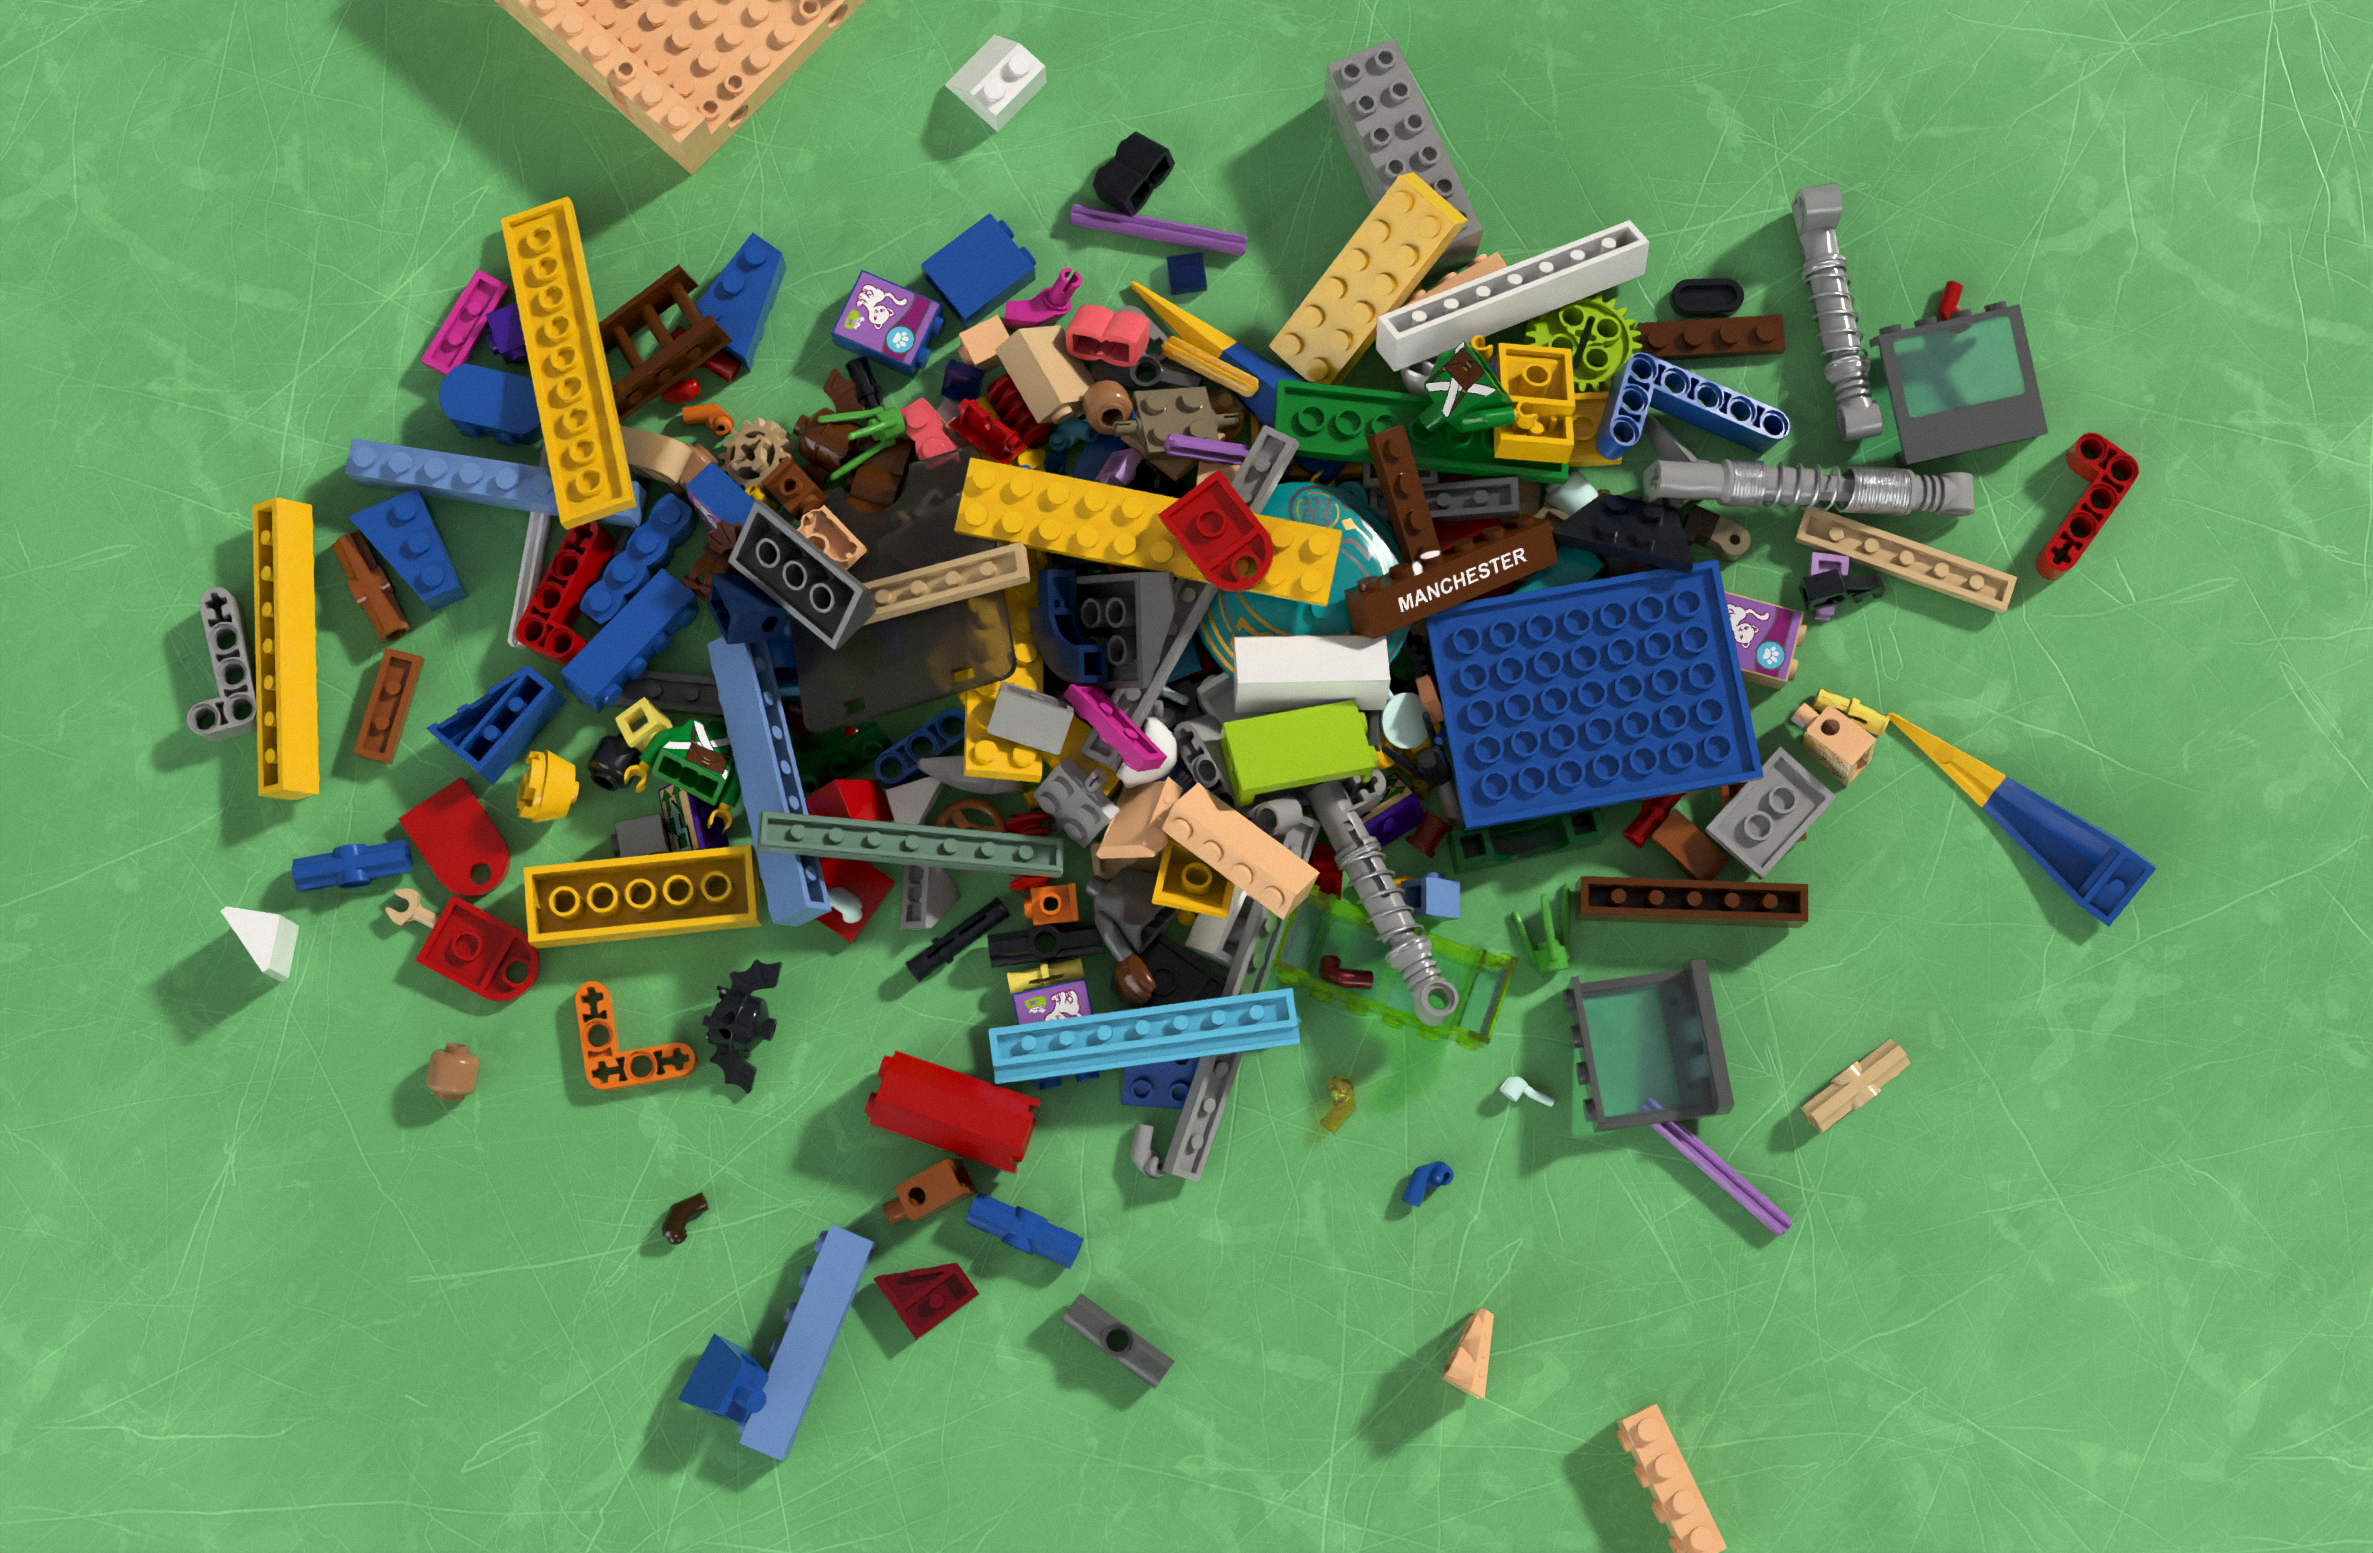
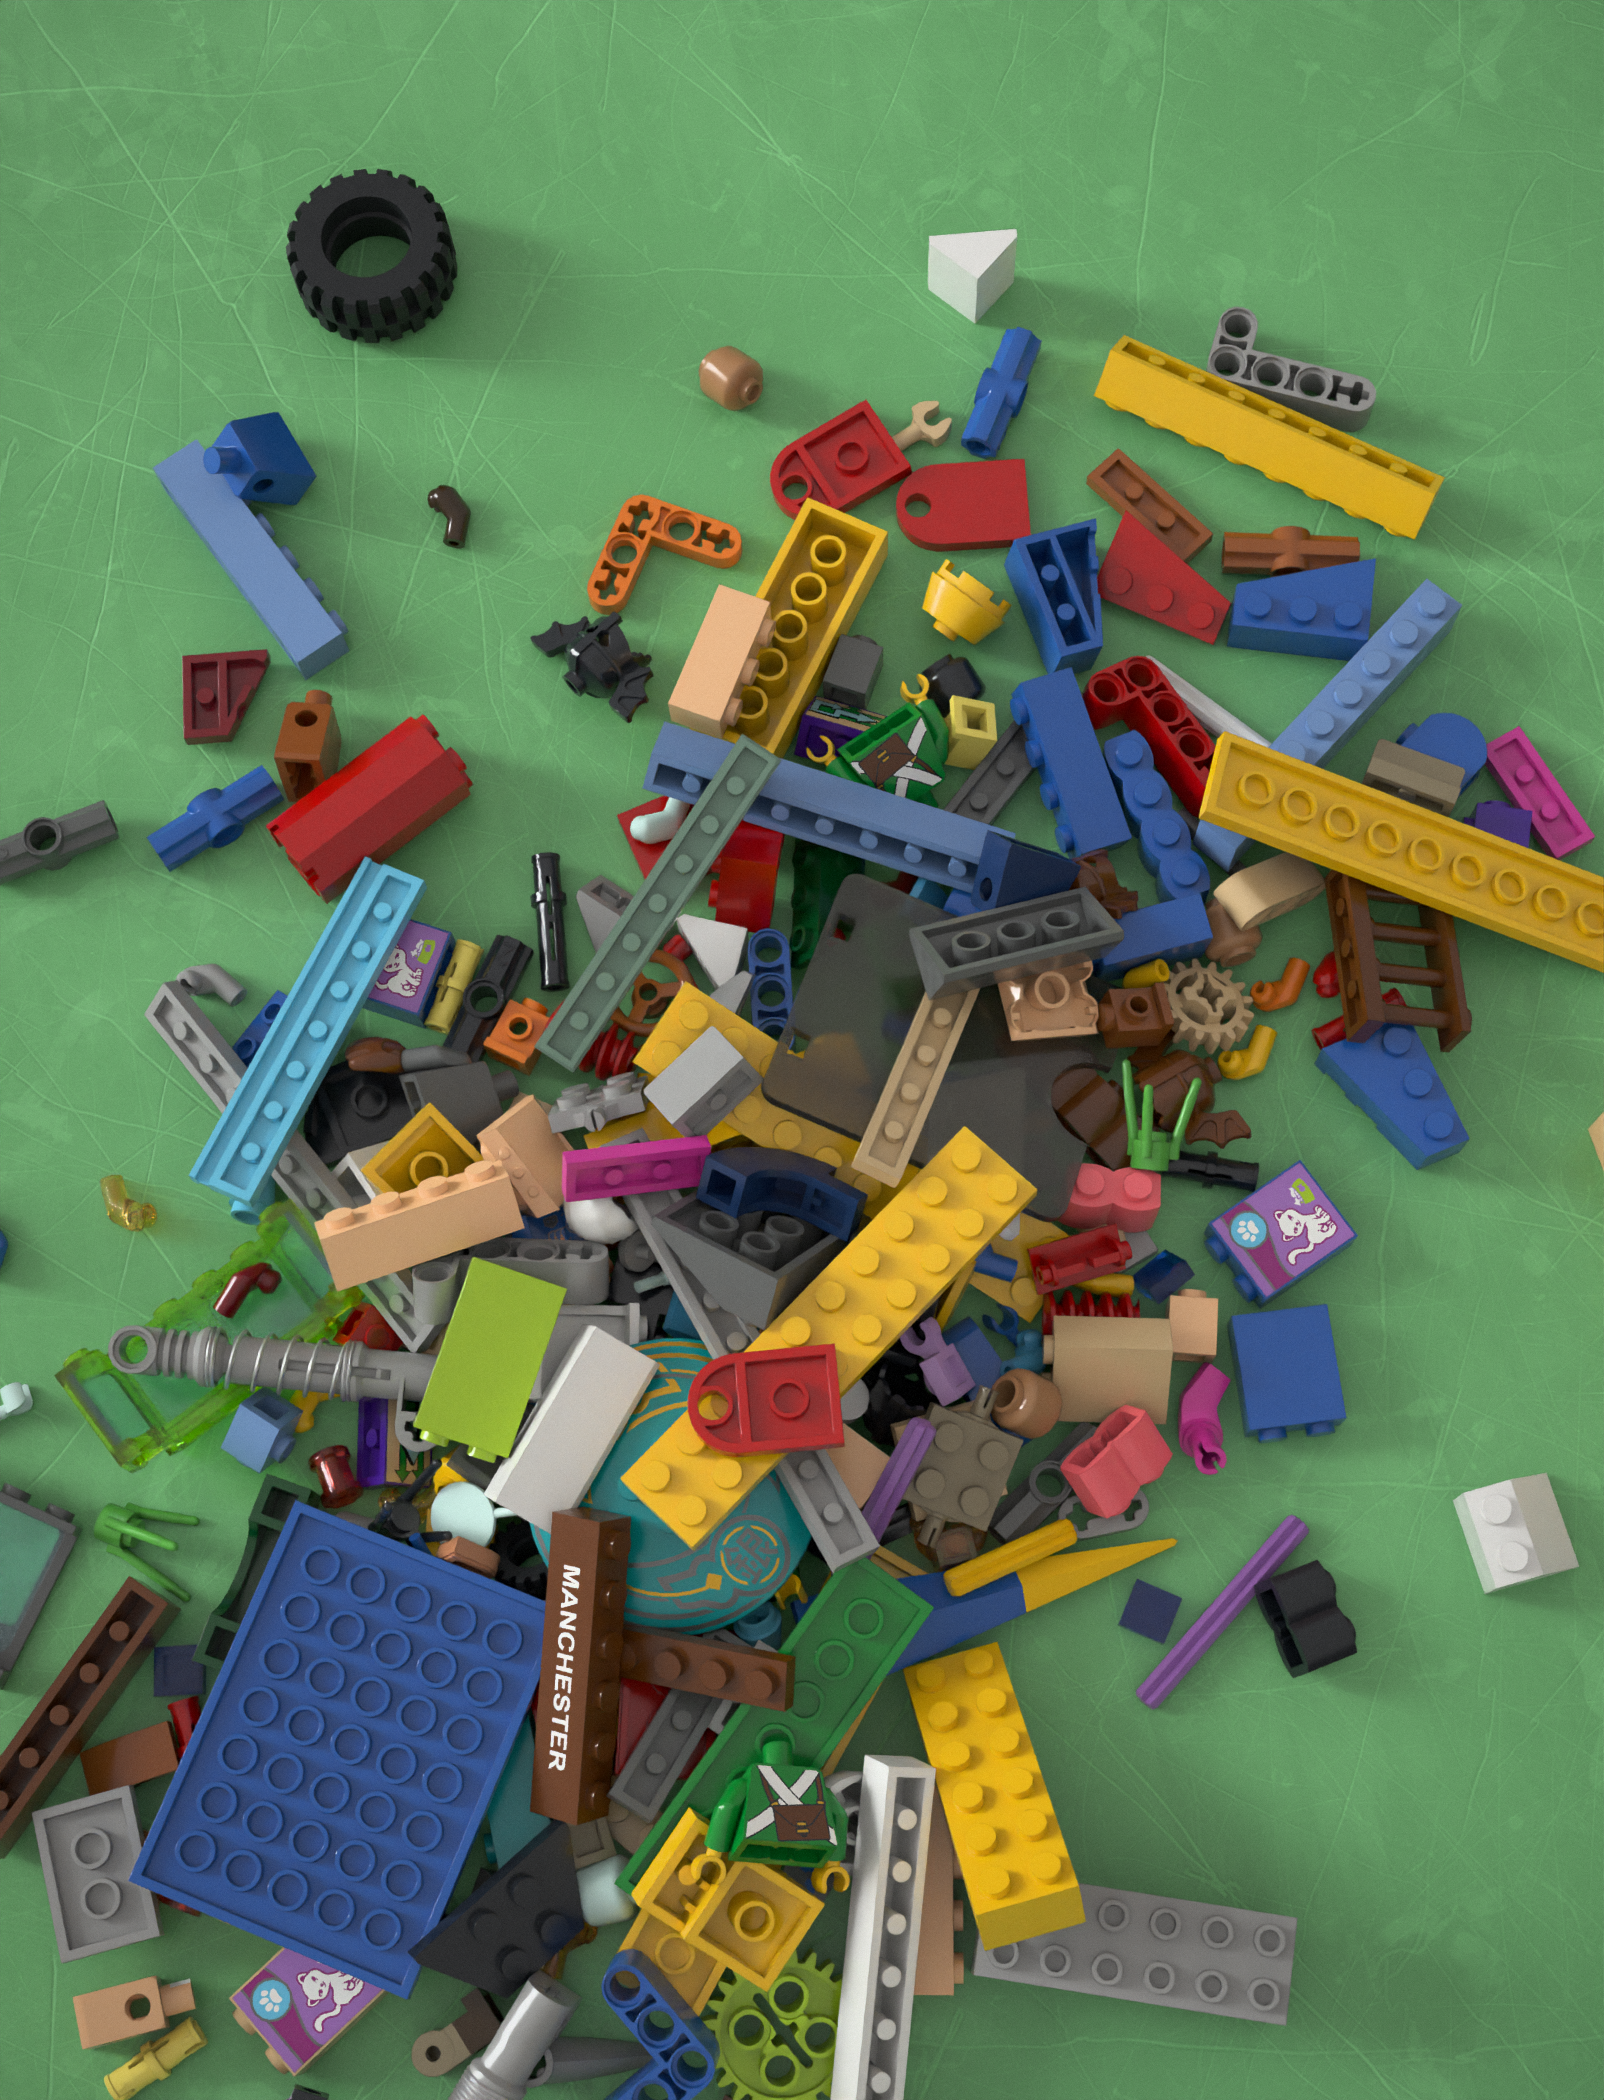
camera: 130 degrees right, 5 degrees down
(448, 663) = (1158, 584): none -> red wing
(452, 1407) = (361, 209): none -> black tyre
(507, 401) = (1414, 777): none -> dark tan panel
(699, 915) = (722, 662): none -> light nougat brick
(771, 409) = (1249, 1060): none -> yellow arm
(1614, 856) = (177, 1673): none -> clear blue tile

